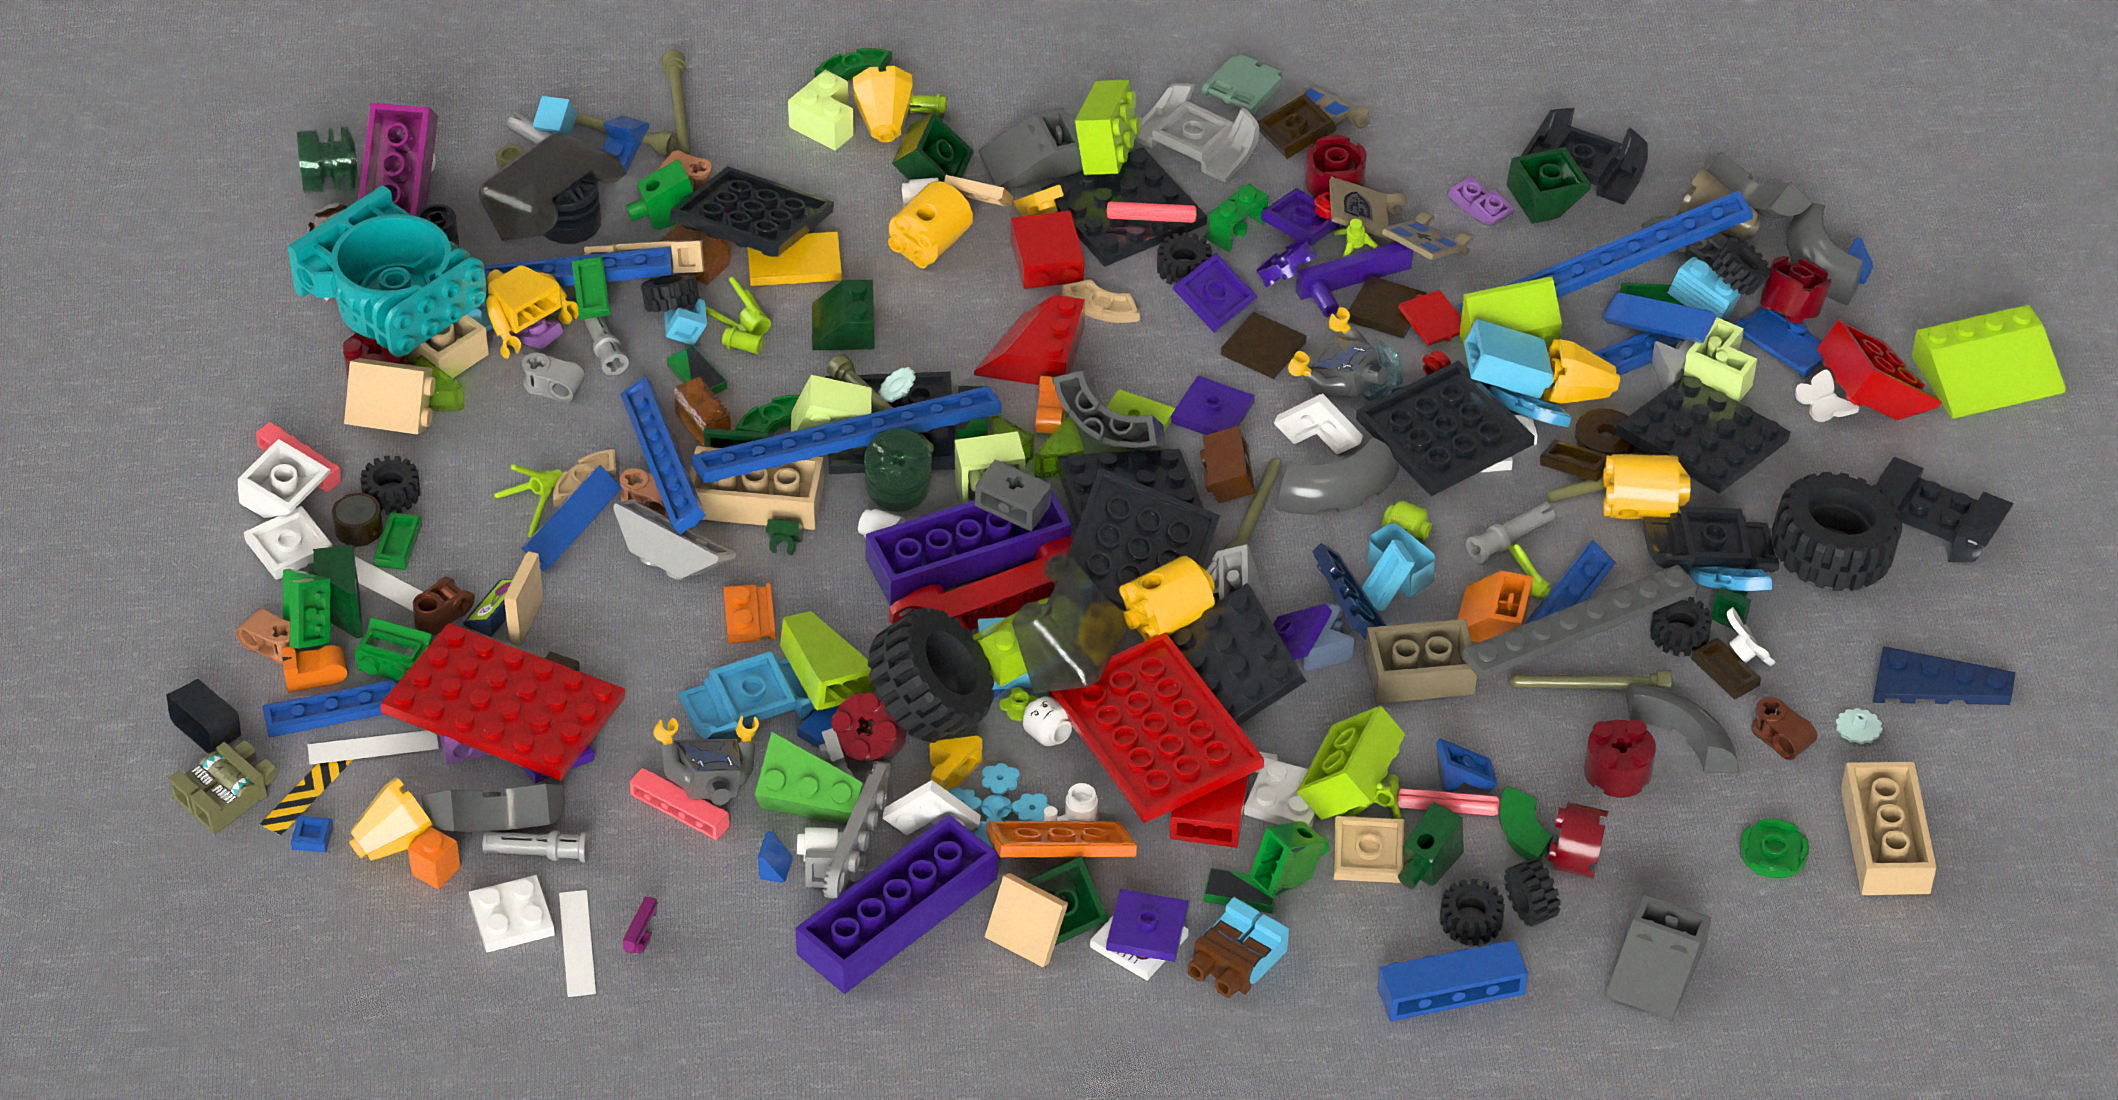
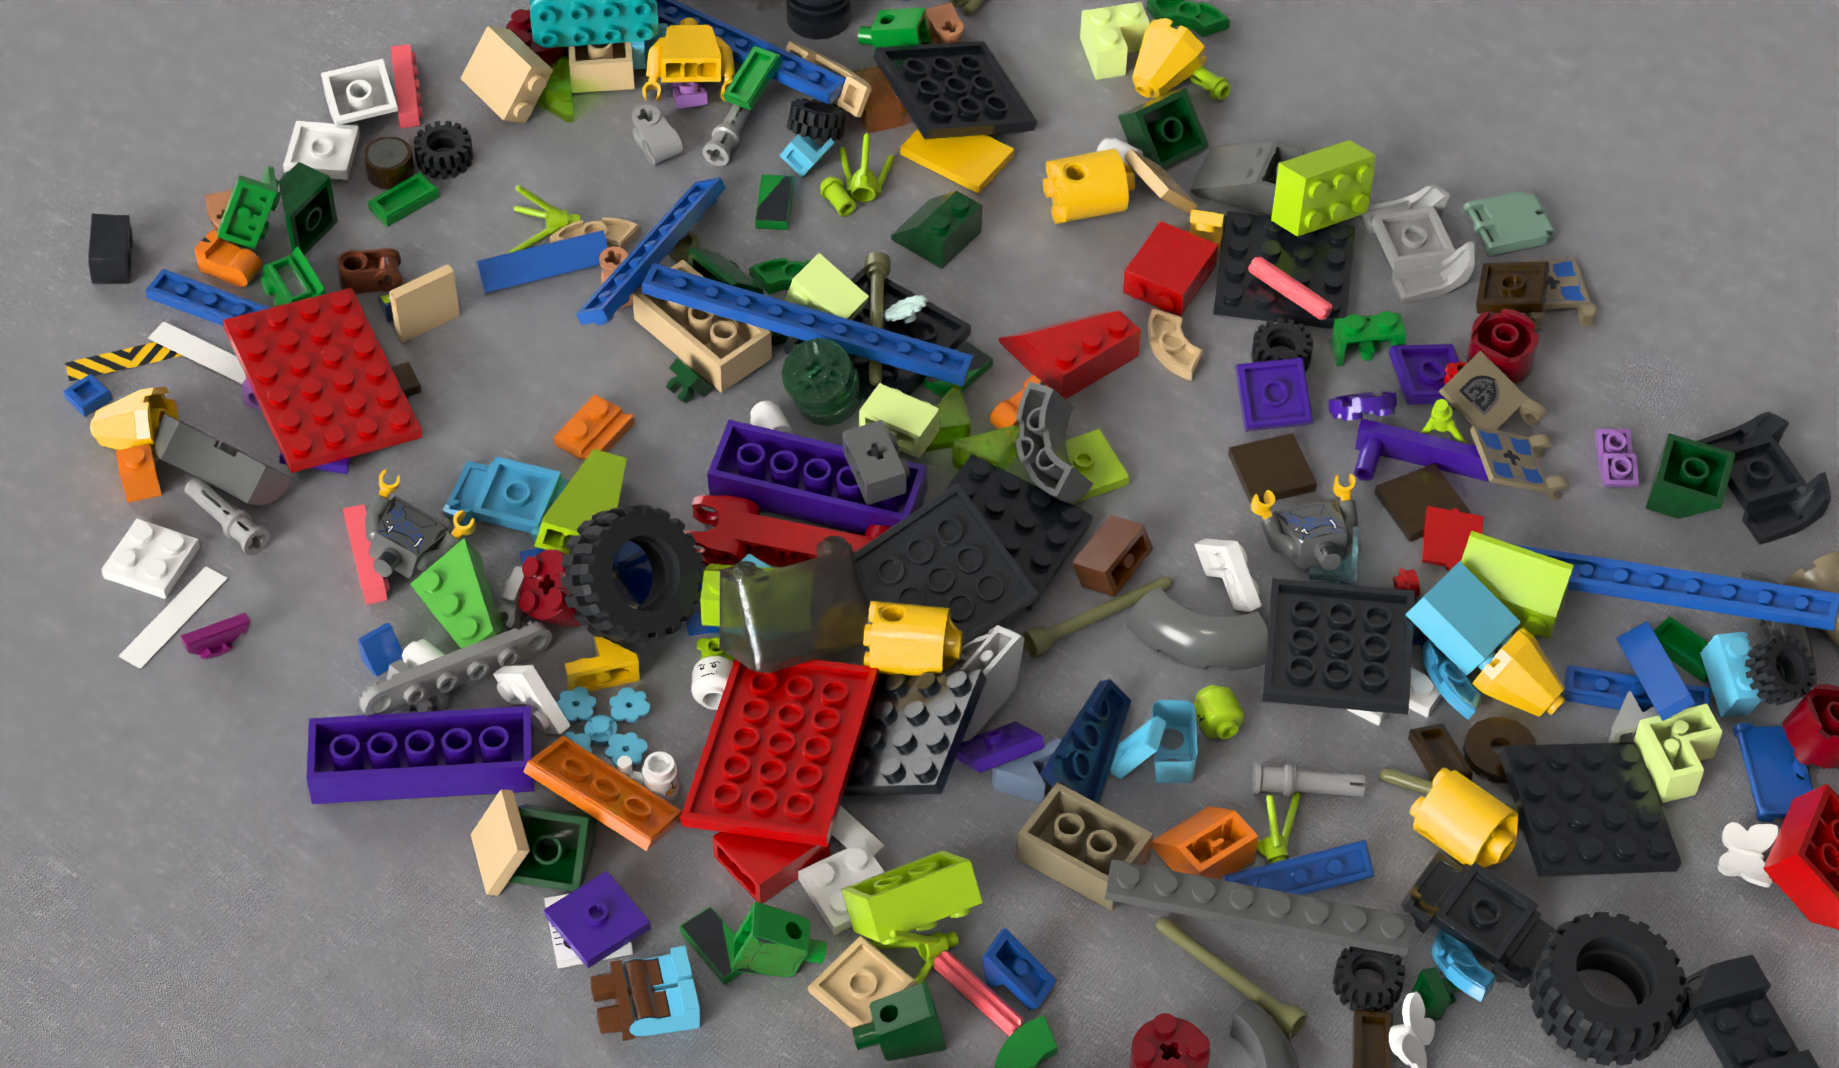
camera: 40 degrees right, 5 degrees up
(223, 785) = (65, 313): olive hips -> none
(386, 584) = (357, 220): white sticker -> none
(660, 545) = (589, 346): wedge -> none
(700, 408) = (735, 232): clear orange brick -> none
(1211, 407) = (1164, 498): dark purple plate -> none

